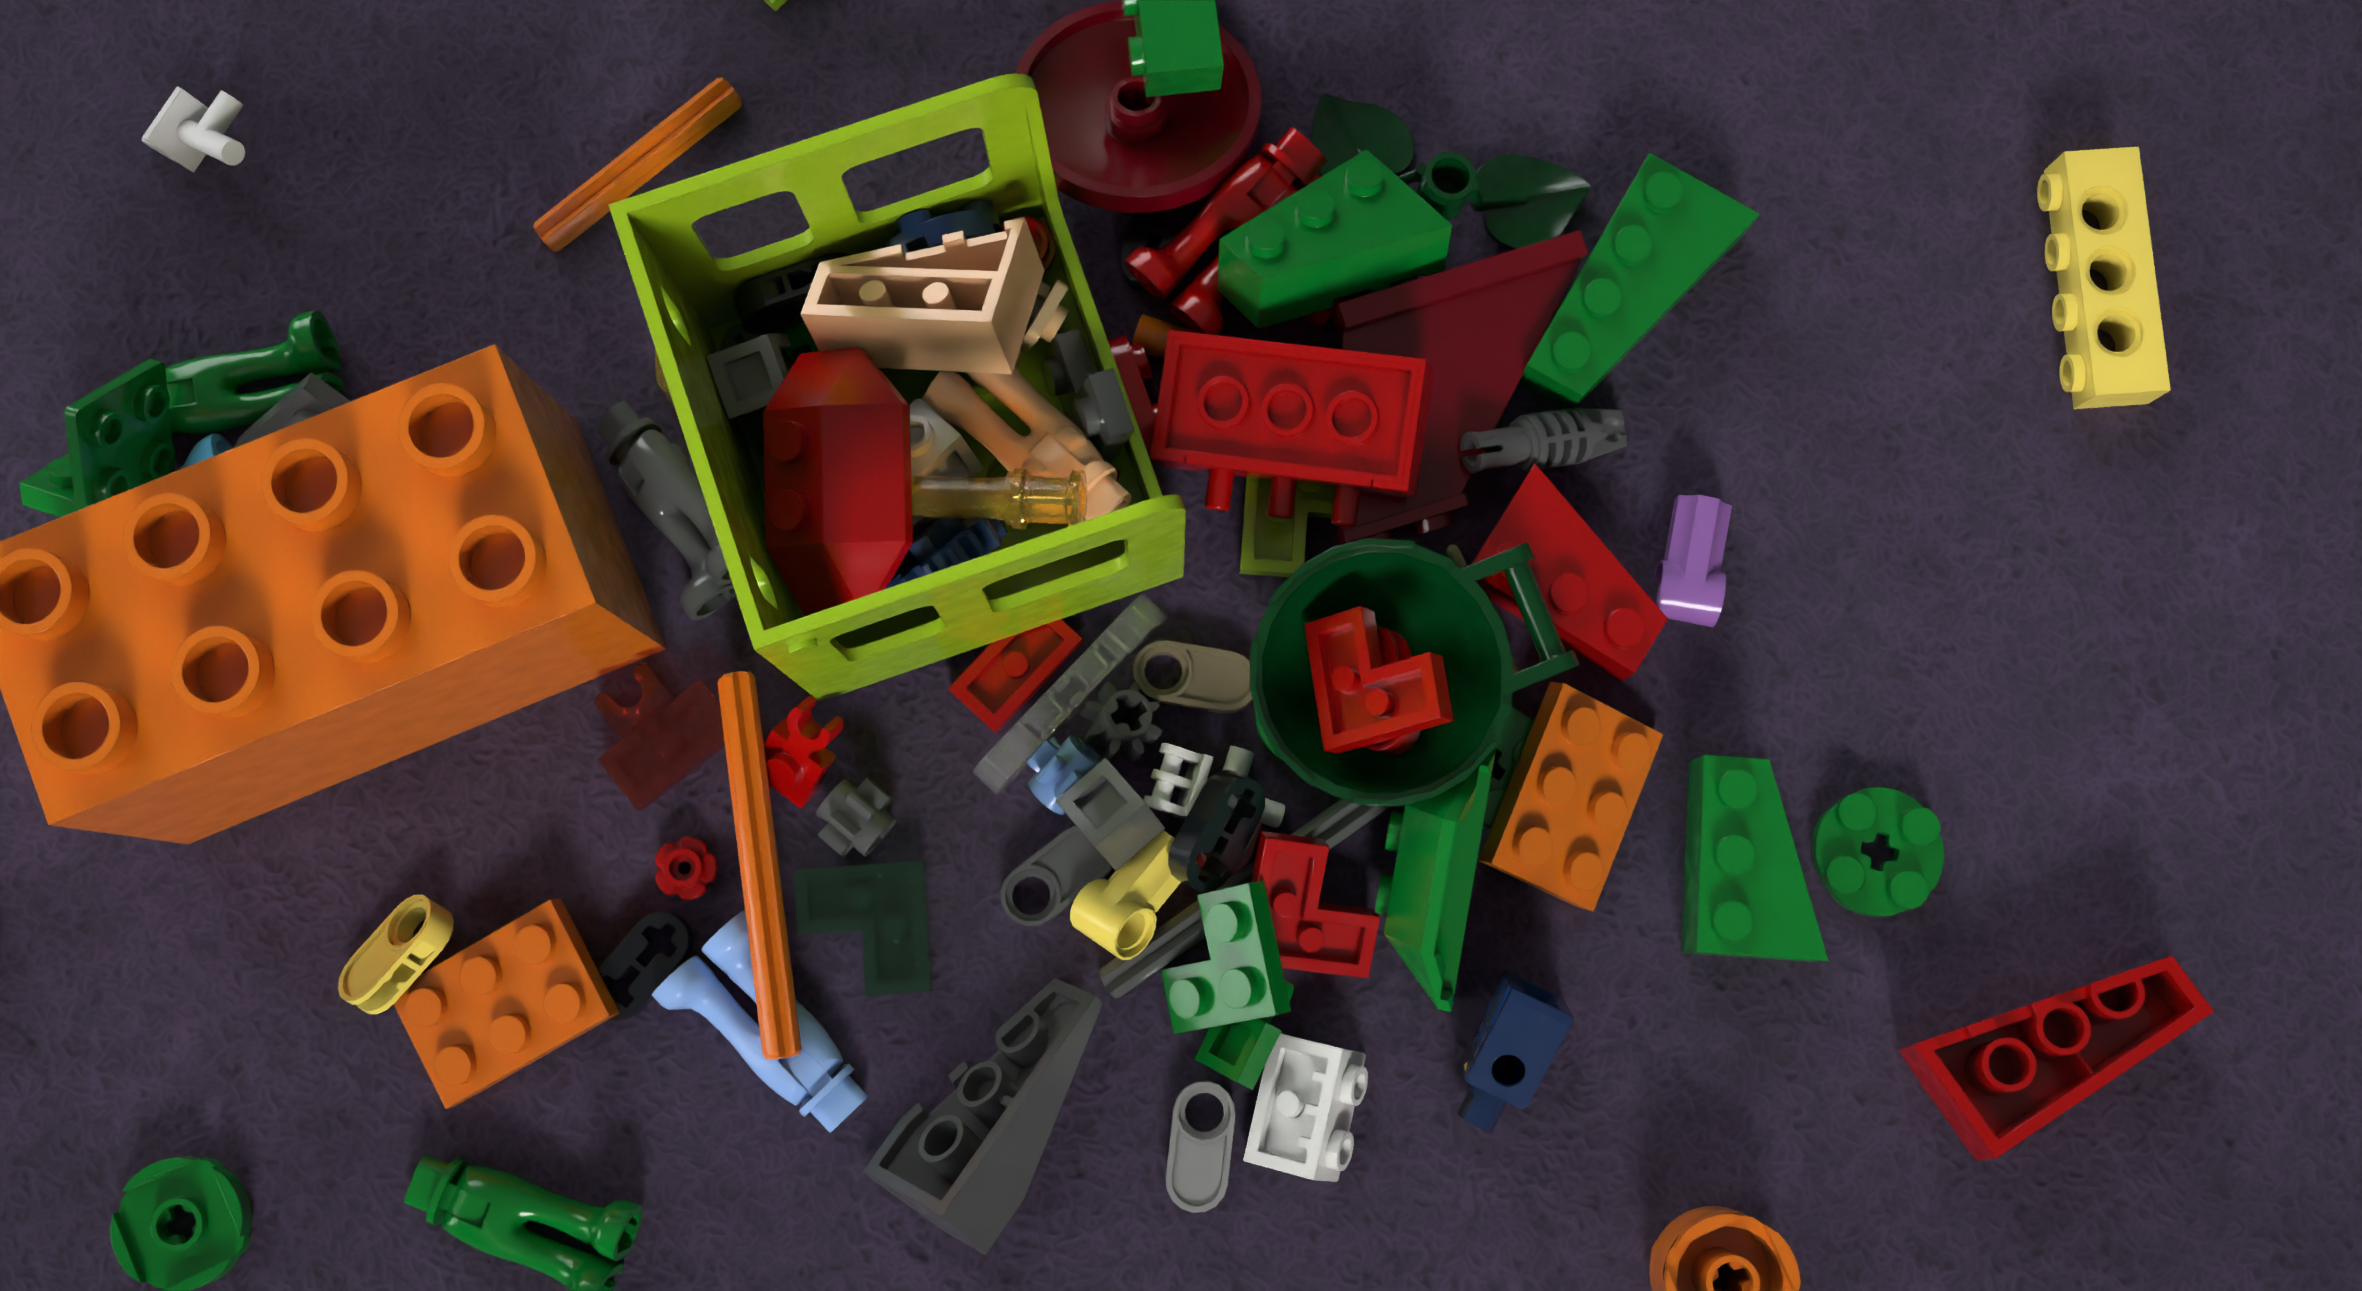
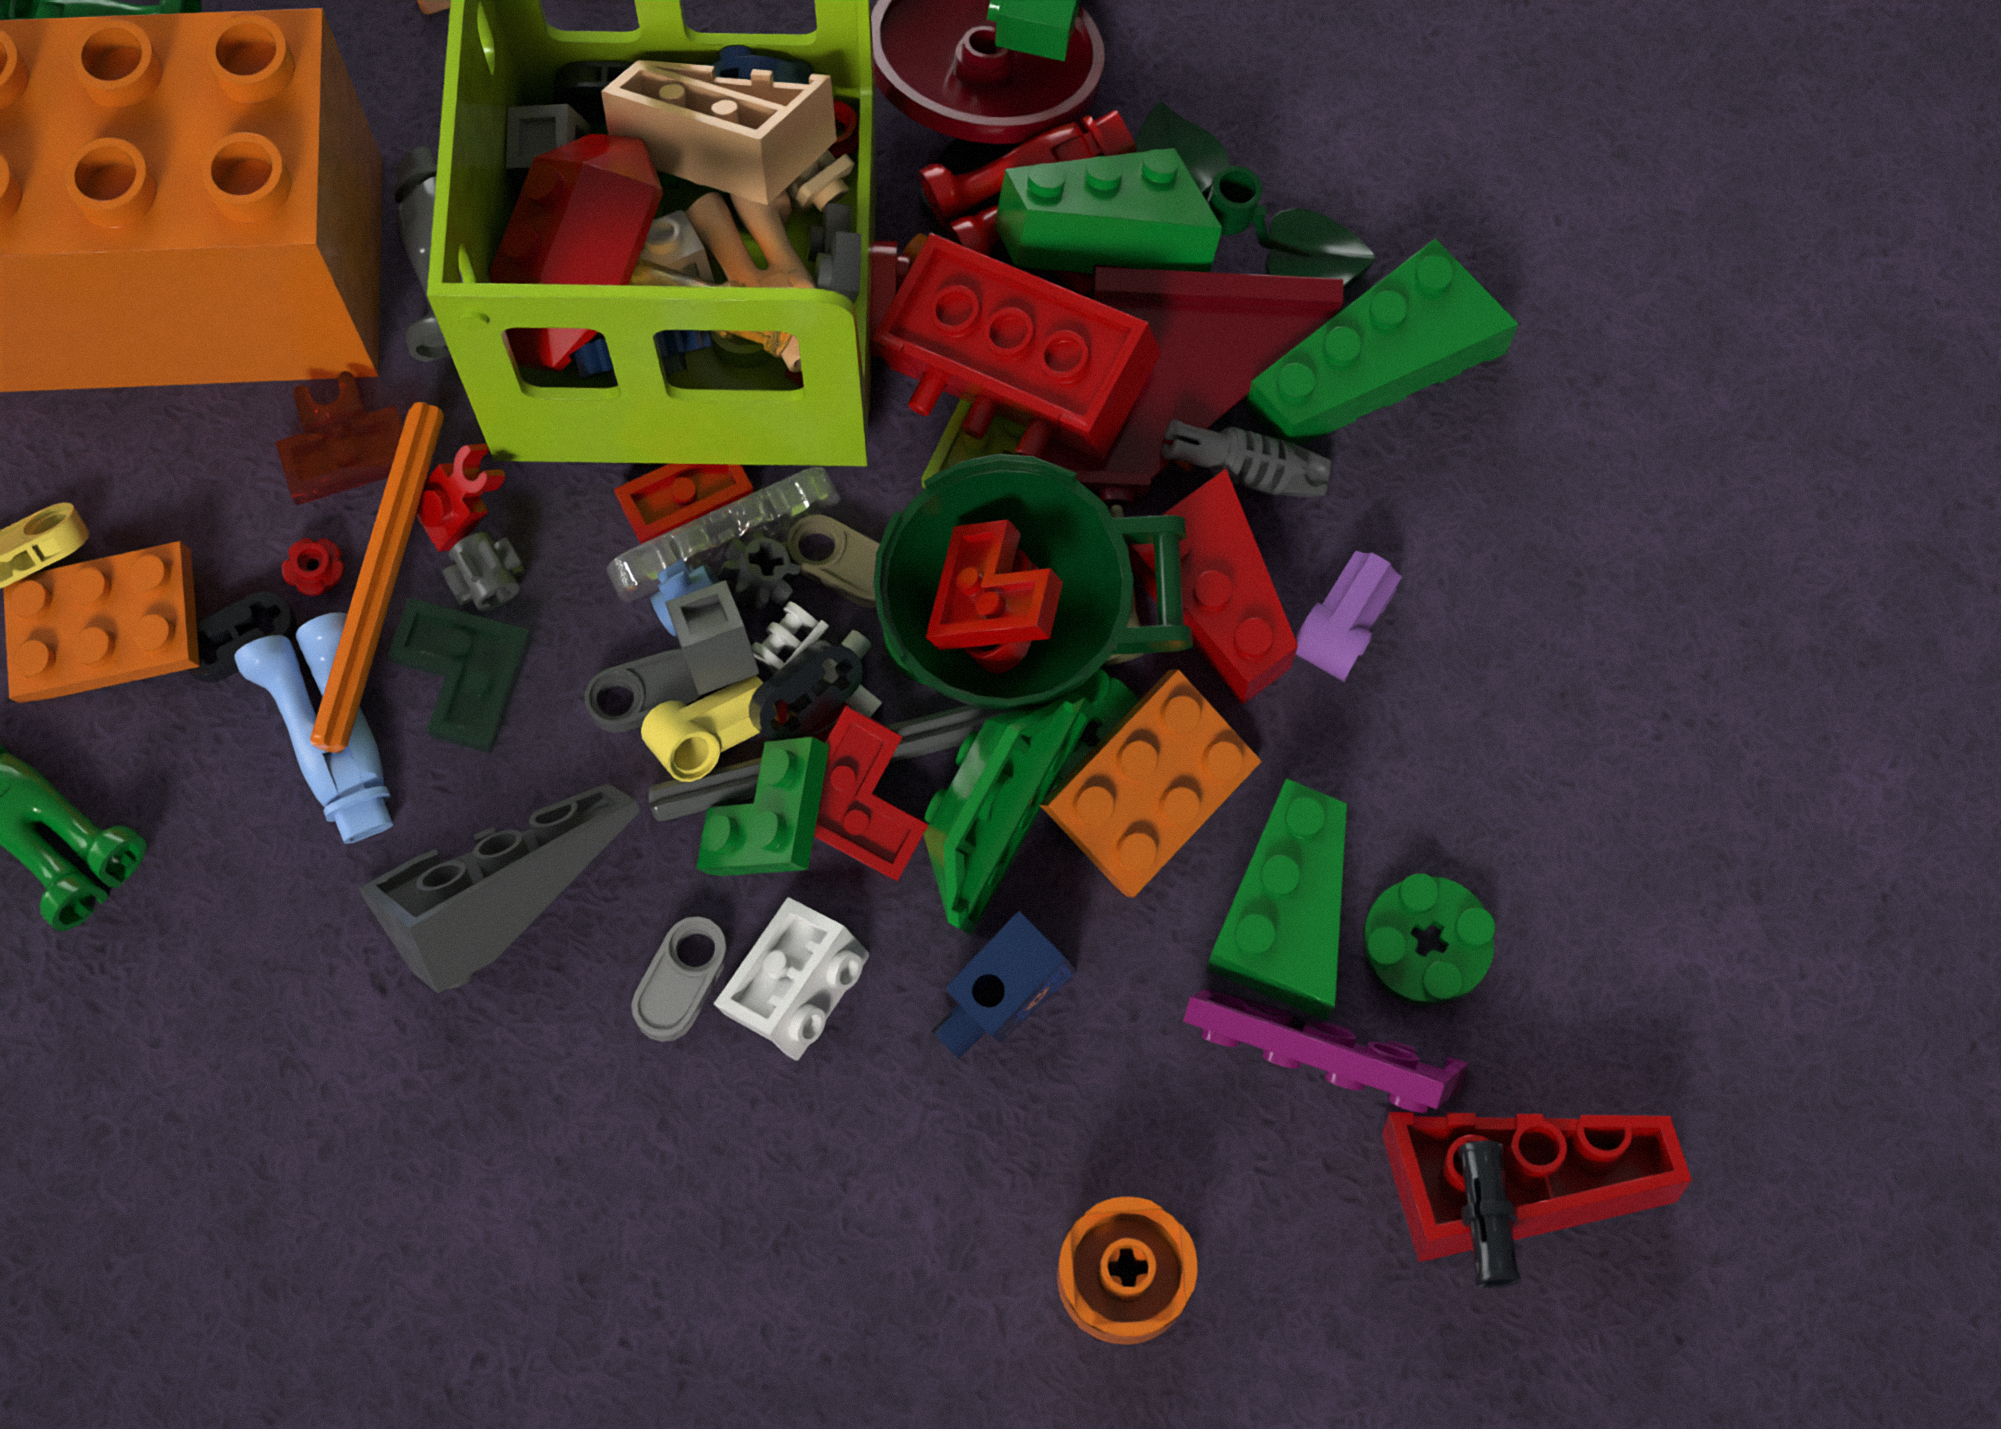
camera: 20 degrees right, 10 degrees down
(1240, 1047) = (754, 899): green plate -> none
(1824, 996) = (1326, 1046): none -> magenta wing
(2048, 1118) = (1489, 1214): none -> black pin
(2113, 190) = (1864, 416): light yellow brick -> none

